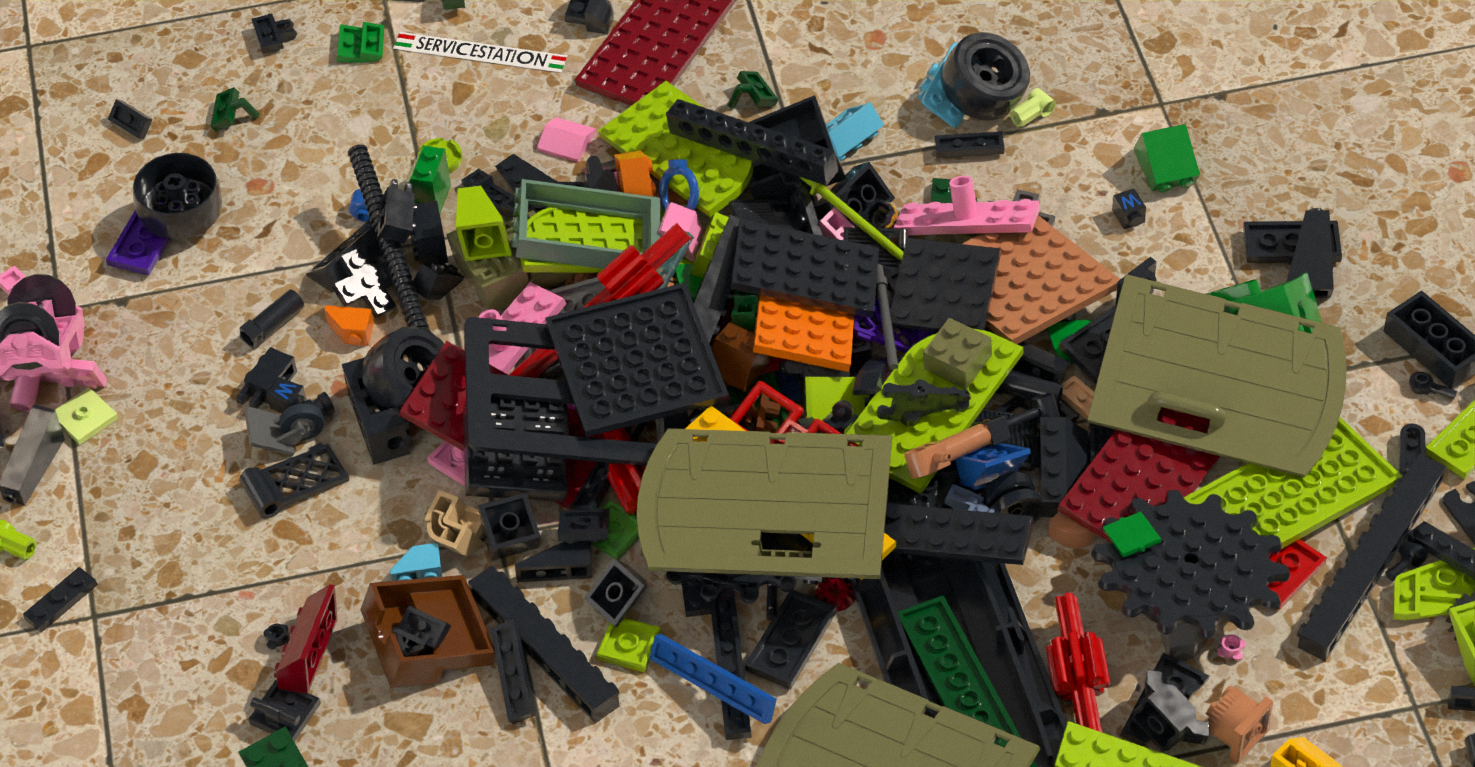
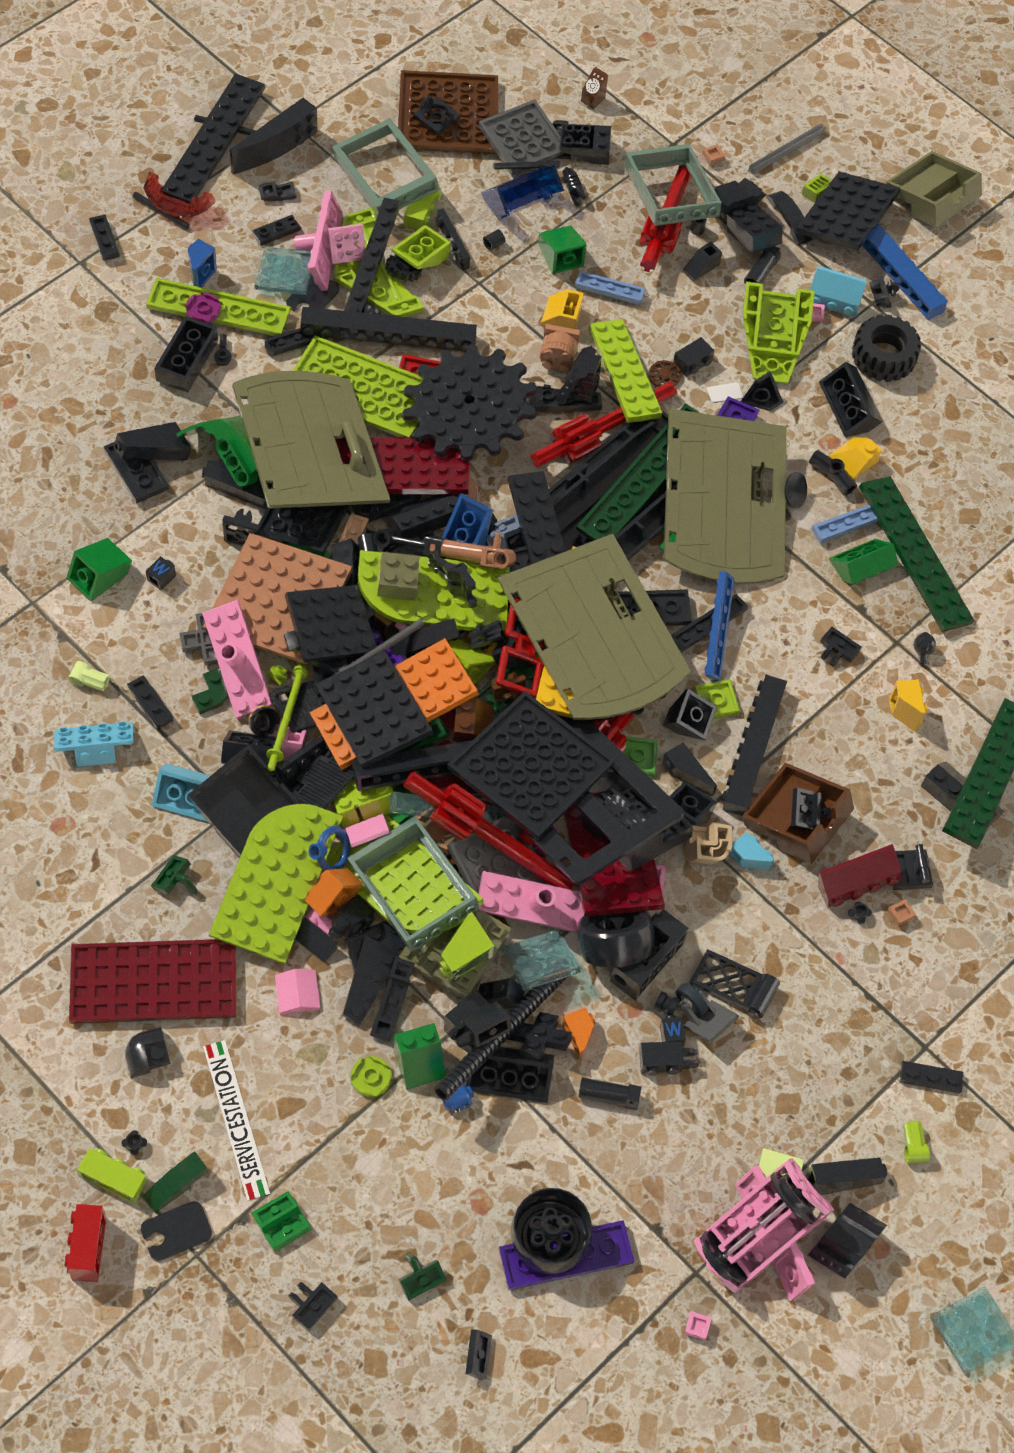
camera: 130 degrees left, 10 degrees up
(244, 673) = (901, 912): none -> nougat plate
(442, 312) = (541, 959): none -> clear light blue plate
(513, 671) = (790, 745): black plate -> none
(584, 525) = (658, 759): black plate -> none
(752, 142) = (269, 807): black brick -> none
(975, 87) = (81, 718): black wheel -> none
(1132, 534) = (474, 432): green piece -> none

